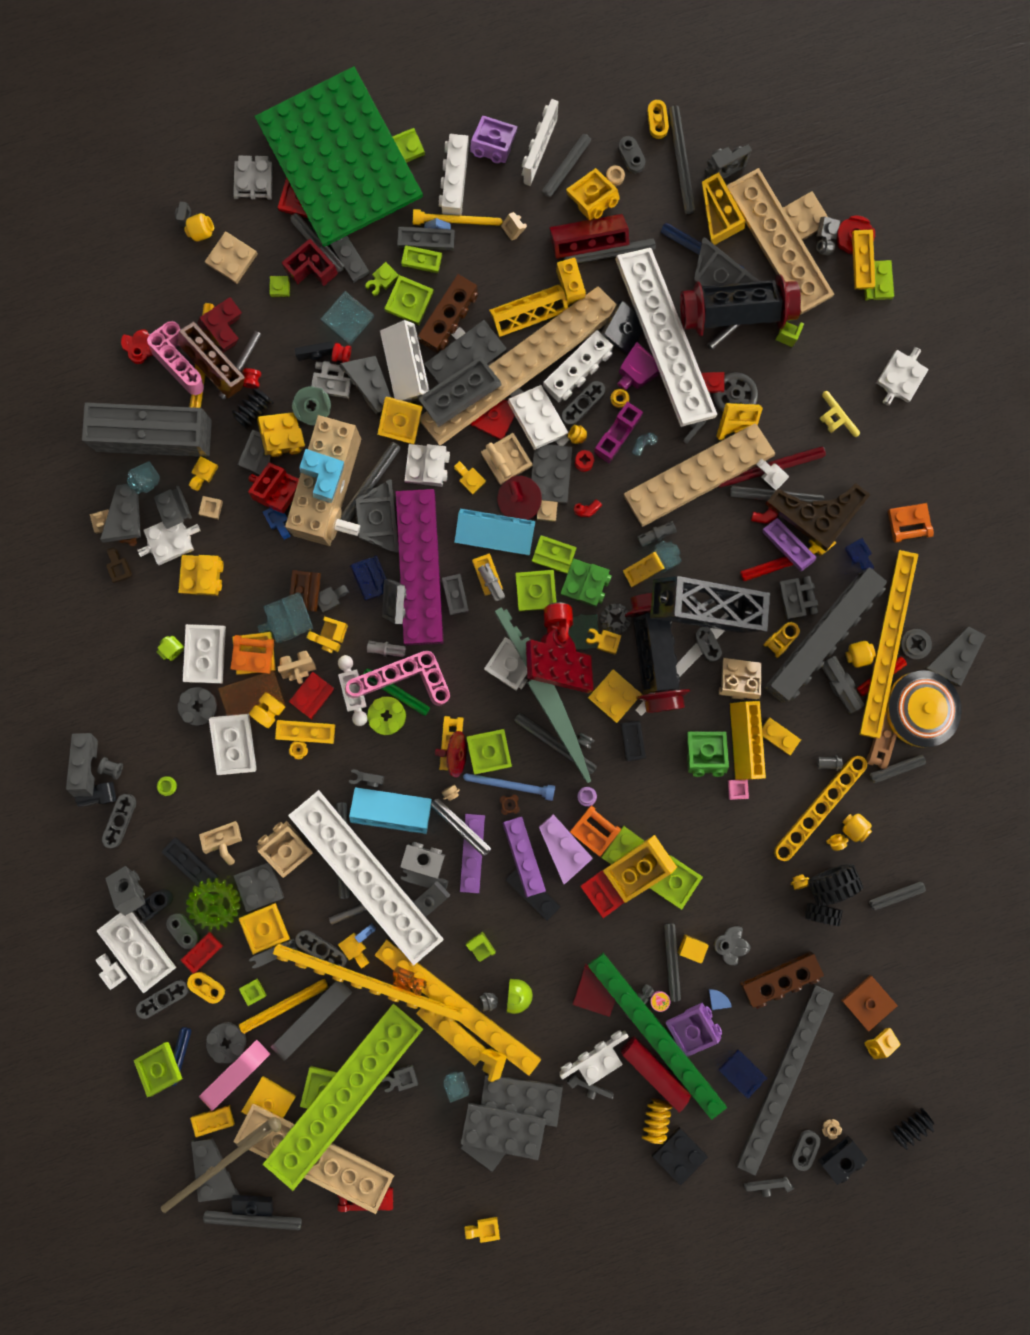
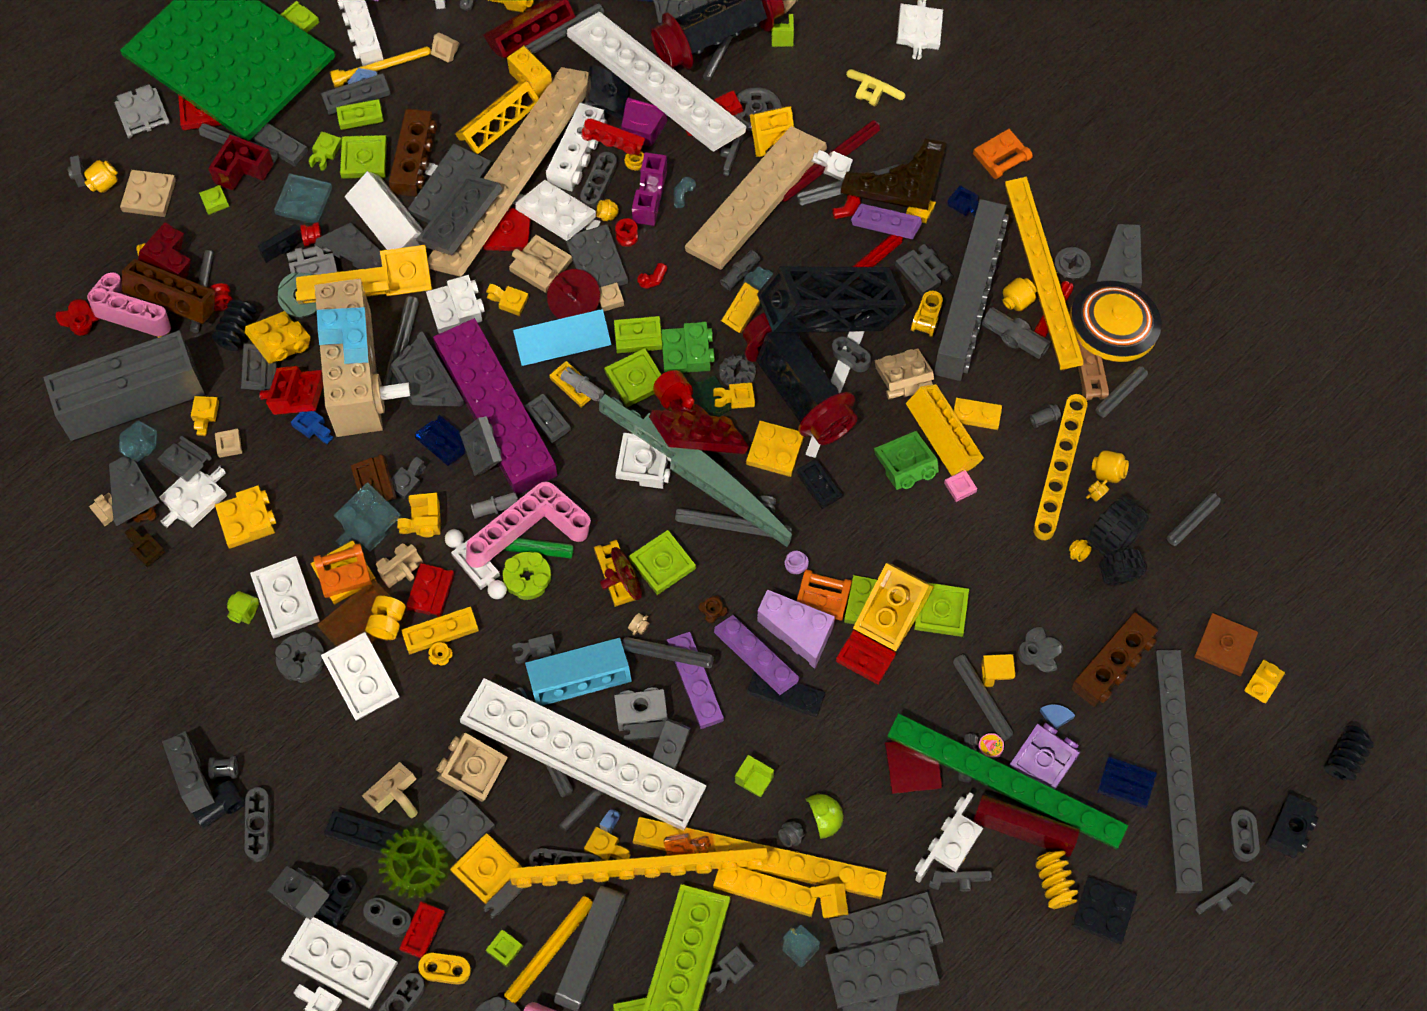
camera: 20 degrees left, 20 degrees down
(166, 786) = (299, 760): lime plate -> none
(366, 419) = (373, 280): none -> yellow panel
(545, 791) = (748, 577): medium blue piece -> none
(606, 375) = (612, 136): none -> red plate
(831, 1124) = (1257, 805): tan plate -> none

